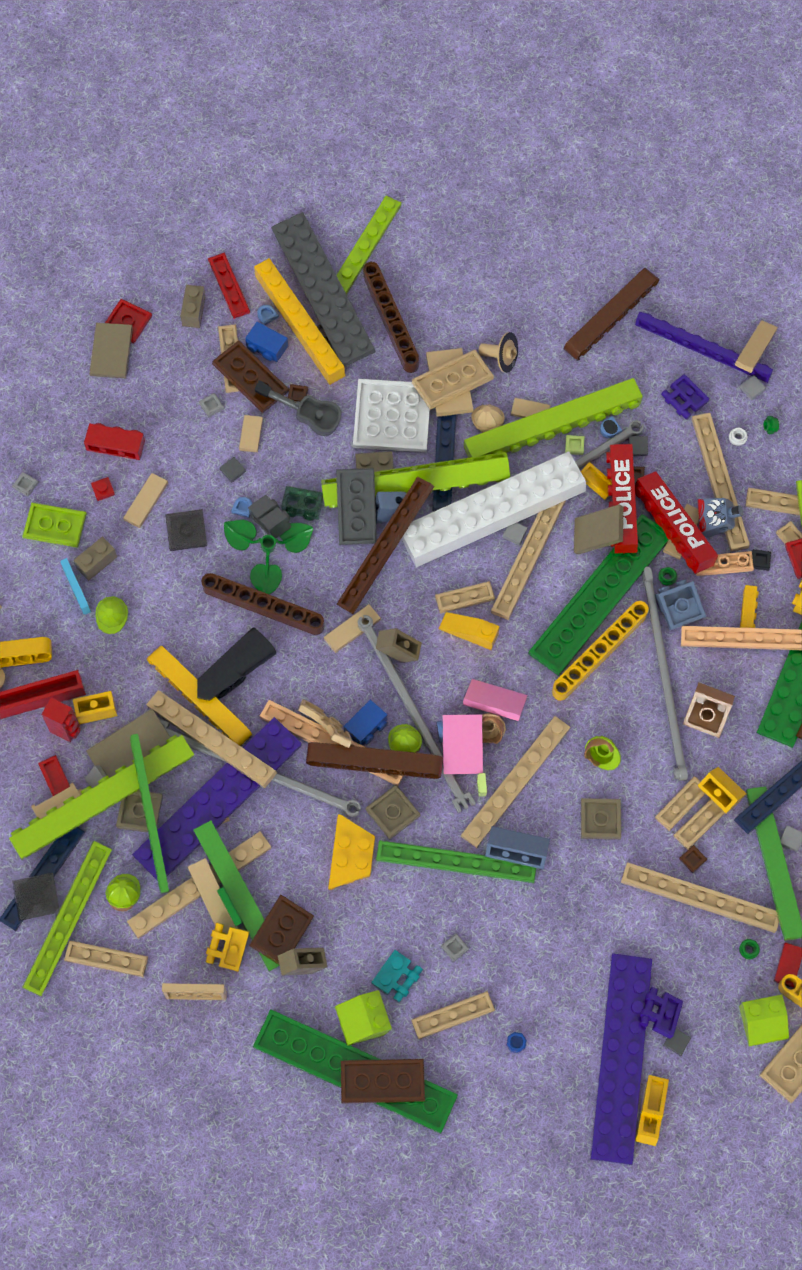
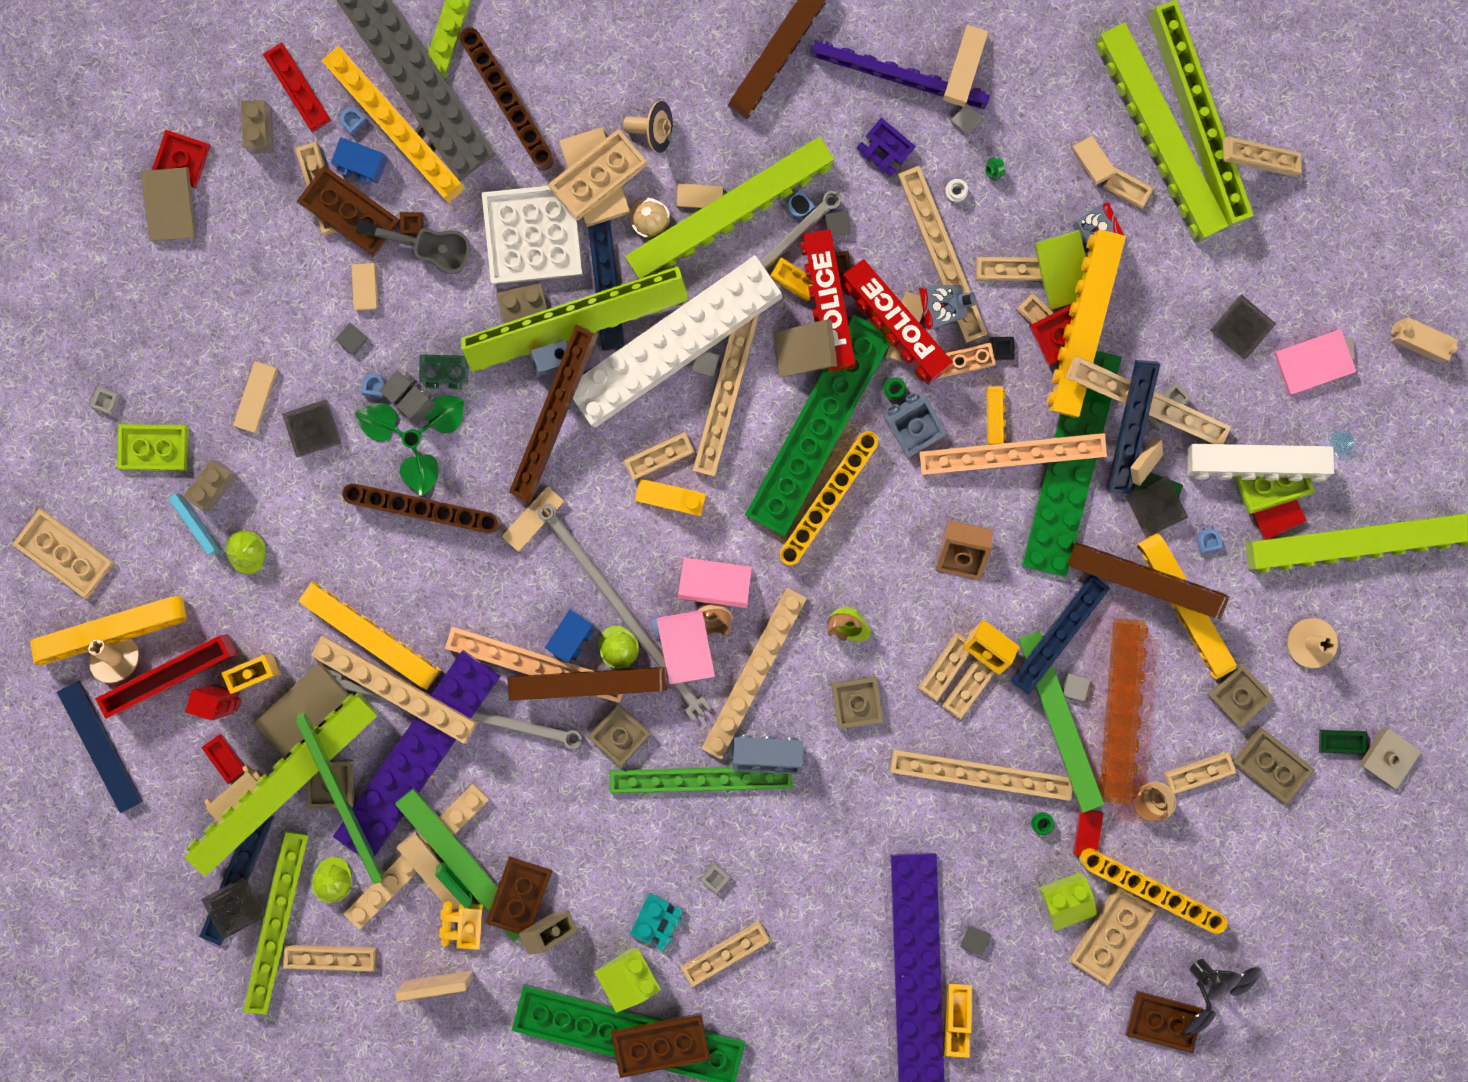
camera: 10 degrees left, 20 degrees up
(94, 776) = (272, 754): light grey tile -> none
(102, 488) = (200, 391): red plate -> none
(114, 441) = (199, 327): red brick -> none
(211, 405) = (308, 256): light grey tile -> none
(234, 665) = (403, 592): black panel -> none
(332, 725) = (529, 646): tan tile -> none
(351, 853) = (581, 791): yellow wing -> none
(356, 506) = (509, 367): dark grey tile -> none
(398, 645) = (590, 538): dark tan brick -> none
(481, 784) = (715, 687): yellowish green tile -> none
(516, 1042) = (799, 973): blue tile -> none
(574, 444) = (760, 234): yellowish green tile -> none
(667, 1015) = (961, 916): dark purple plate -> none
(680, 771) = (940, 630): light grey hinge -> none
(693, 859) = (967, 730): reddish brown tile -> none

